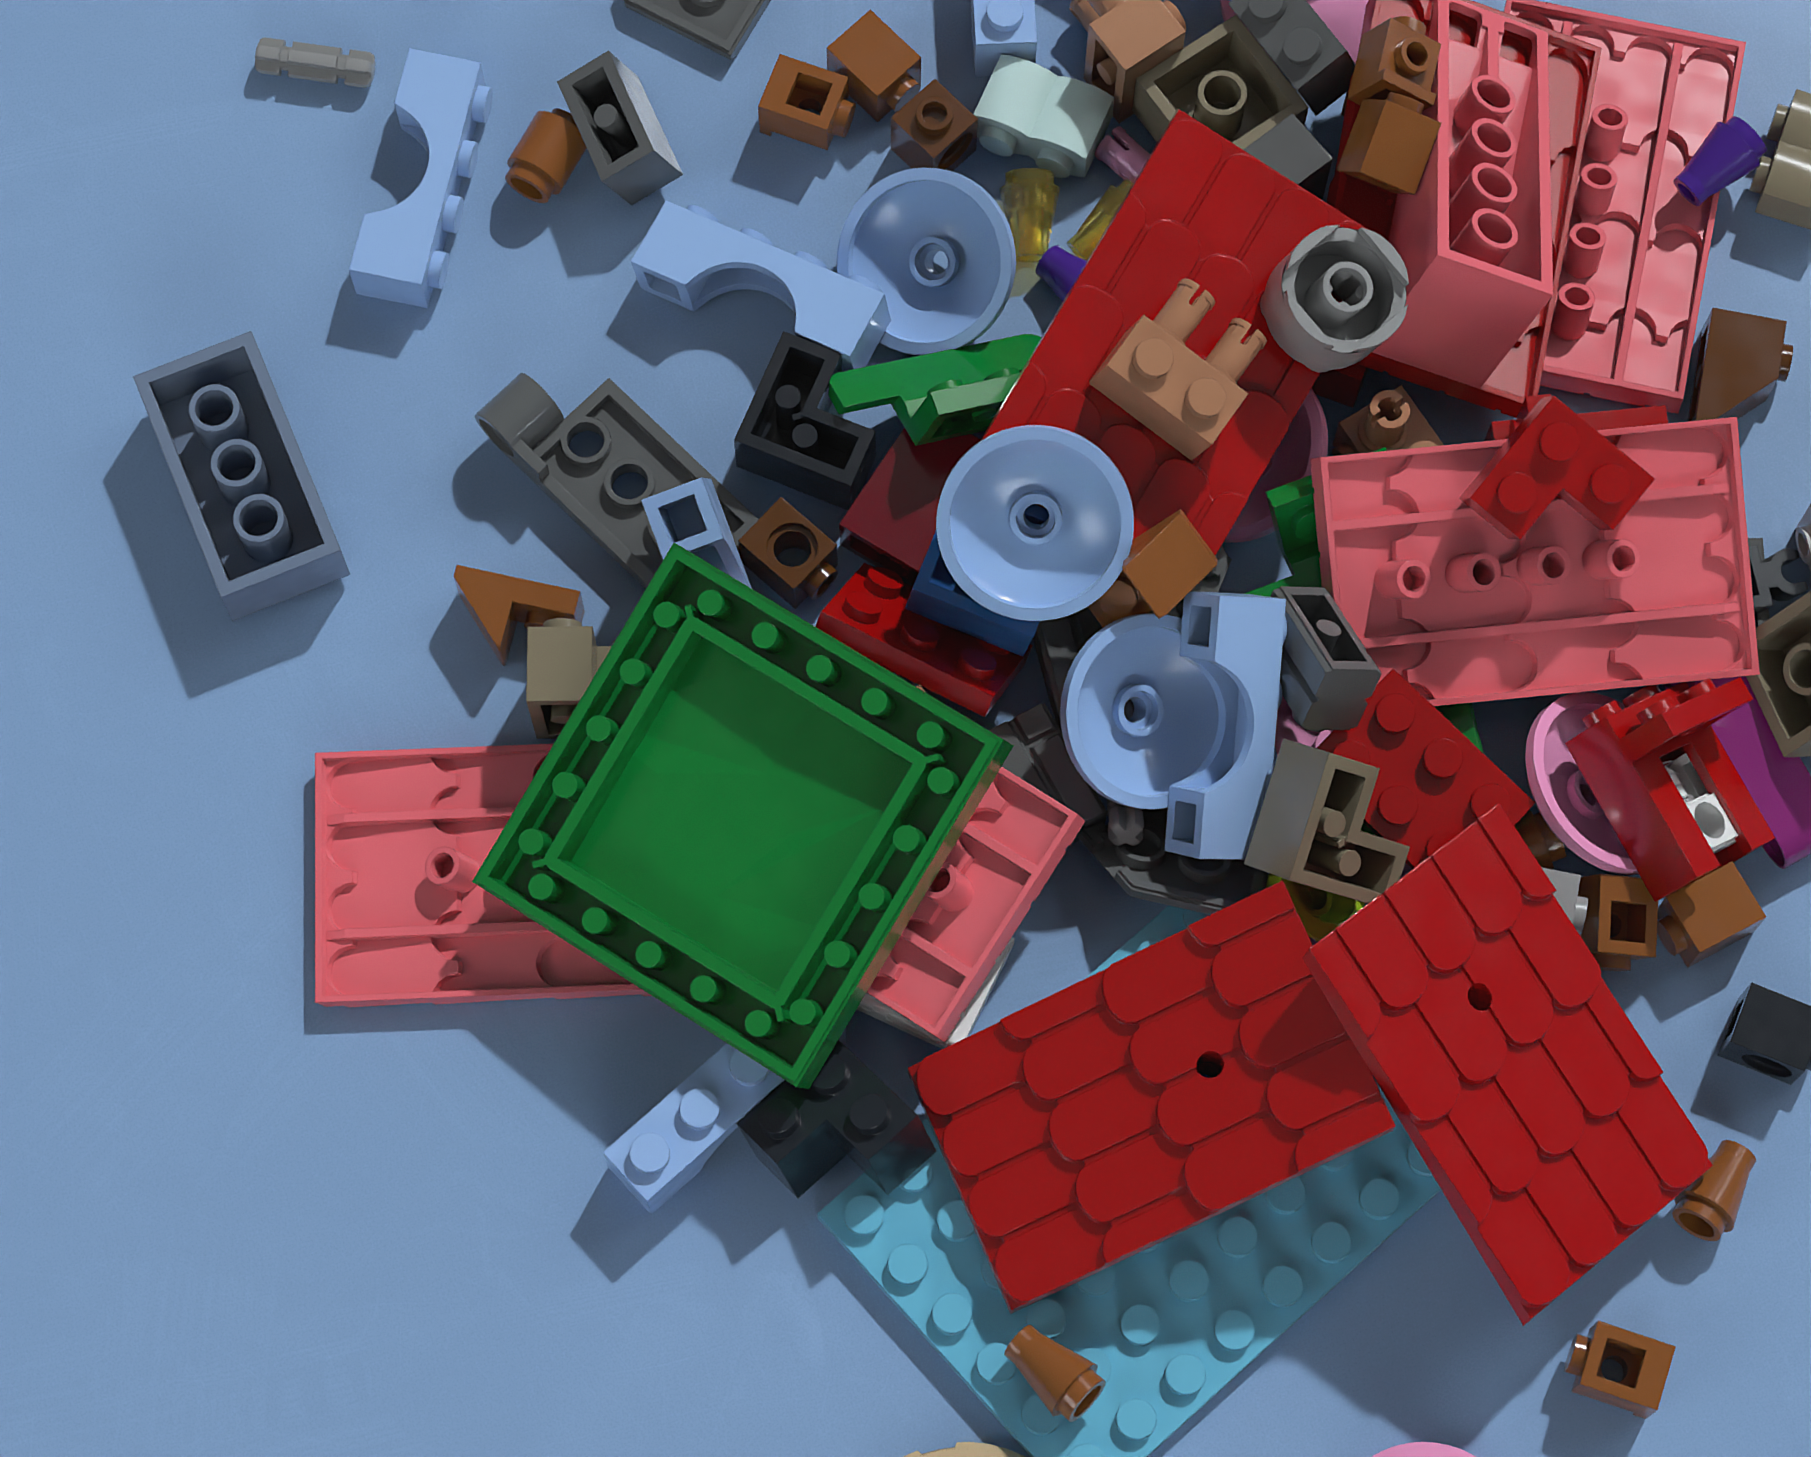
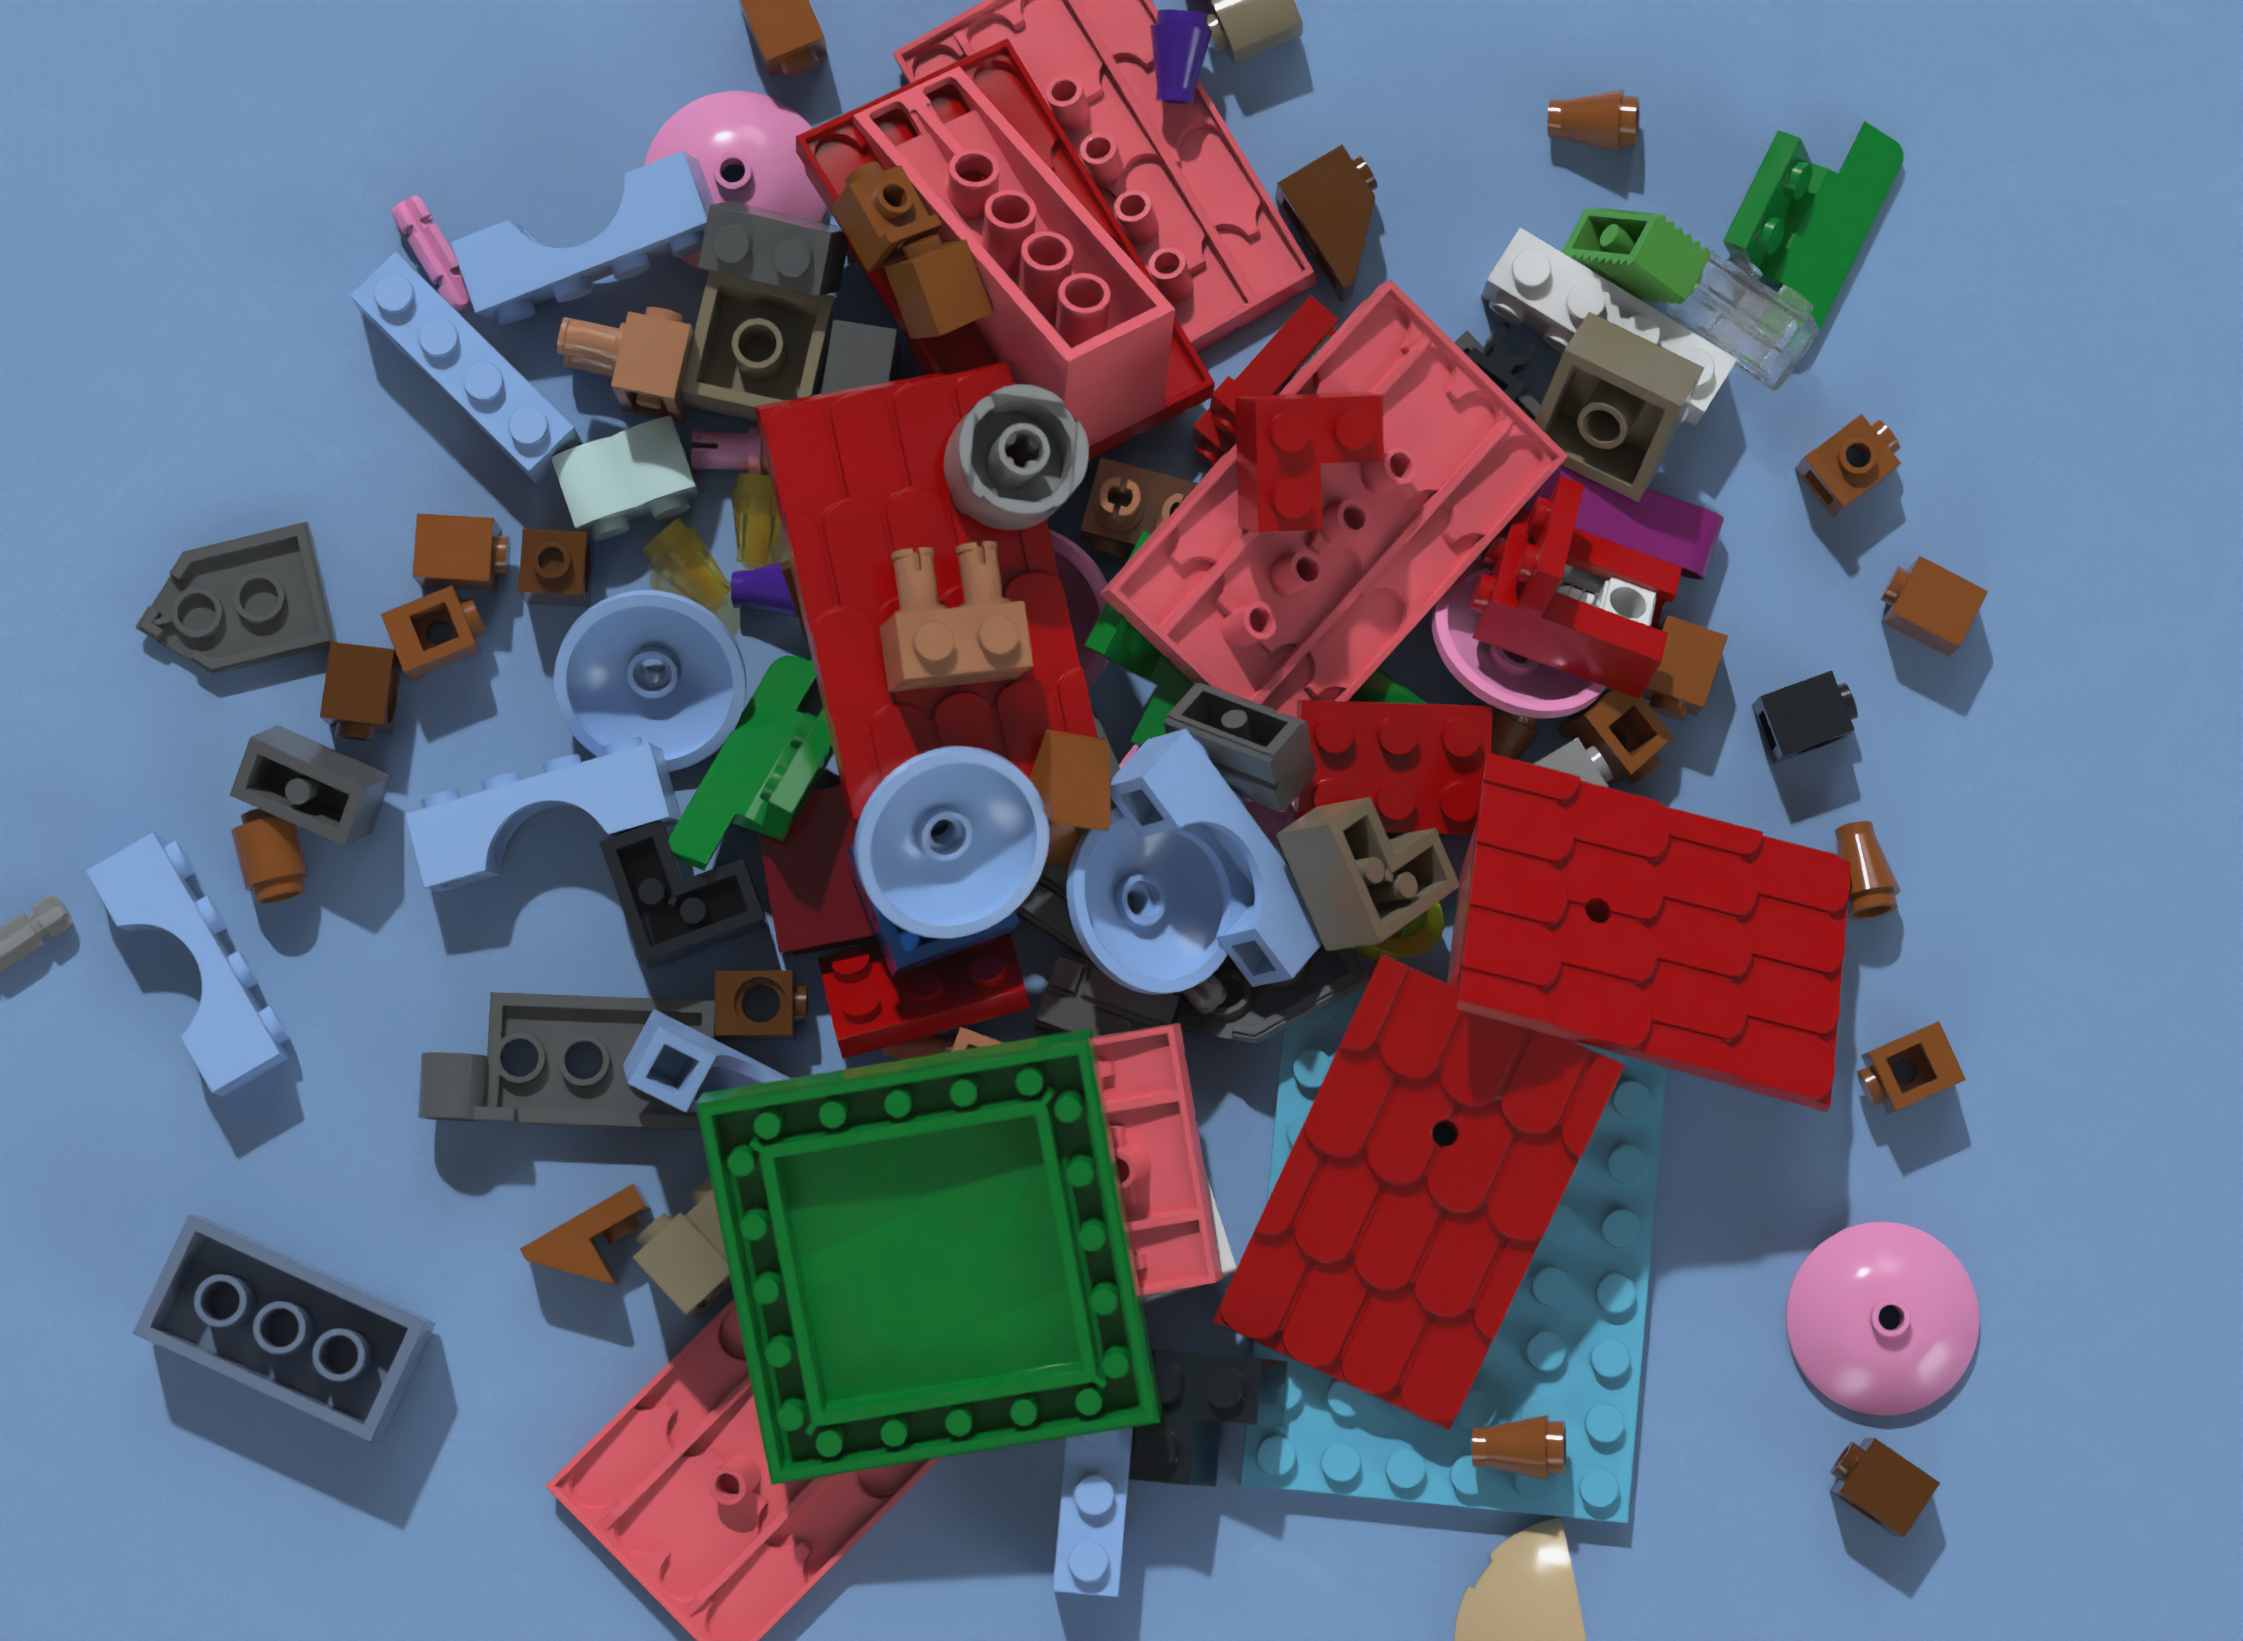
camera: 45 degrees left, 10 degrees up
(716, 99) = (360, 690): none -> reddish brown brick

